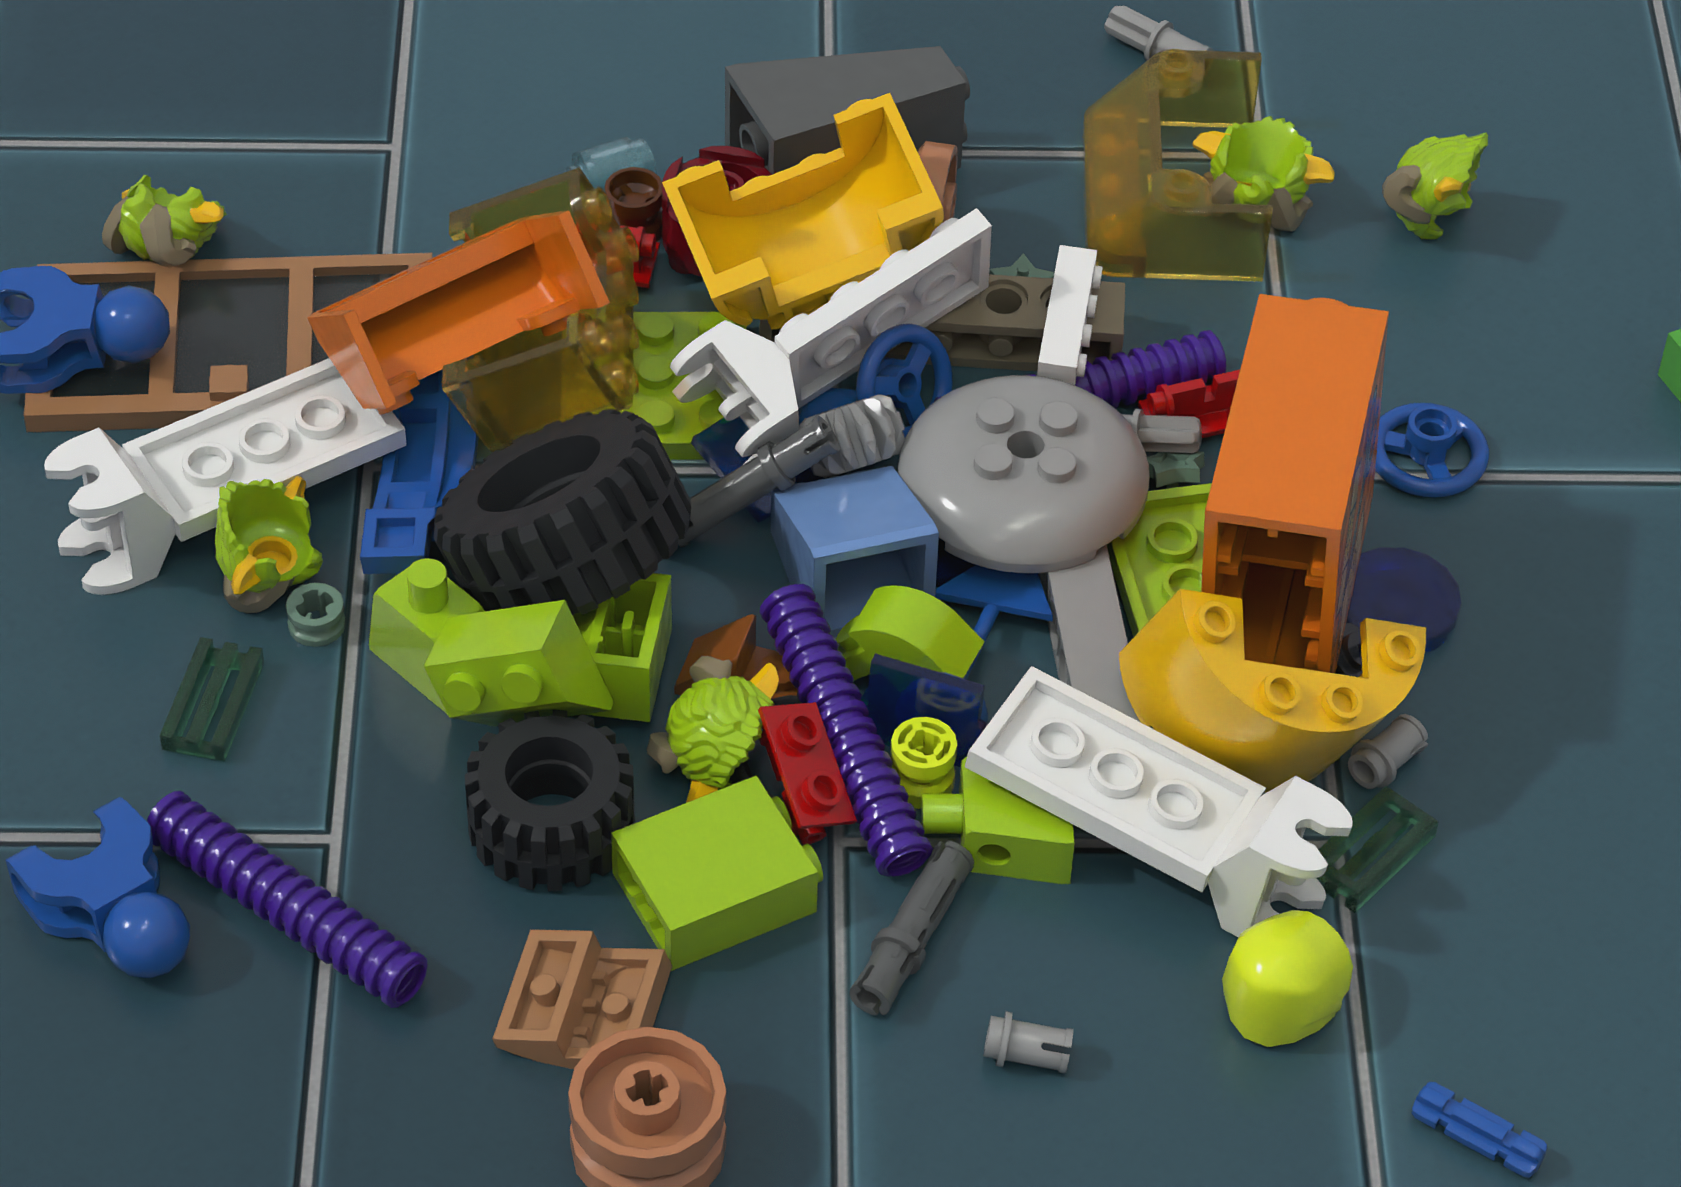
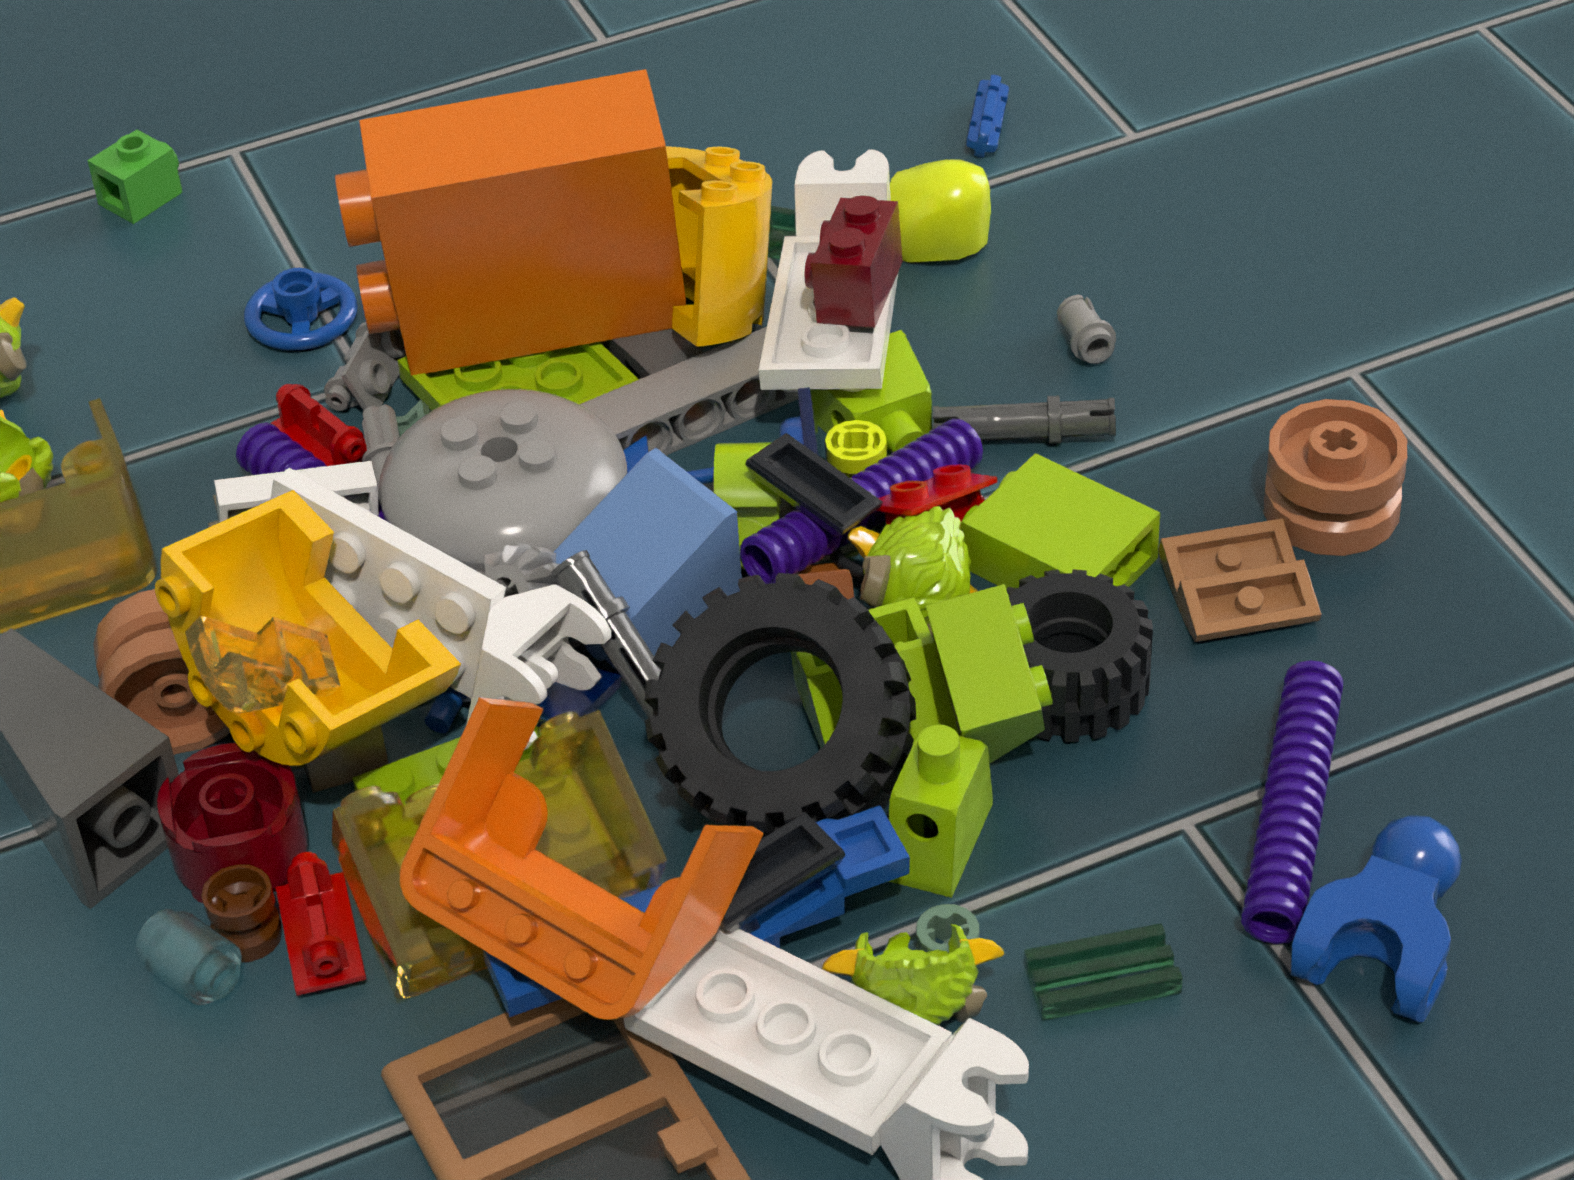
camera: 110 degrees left, 5 degrees down
(401, 459) = (781, 867): none -> black tile
(778, 176) = (253, 669): none -> clear yellow slope
(831, 639) = (812, 485): none -> black tile
(1124, 771) = (855, 261): none -> dark red brick

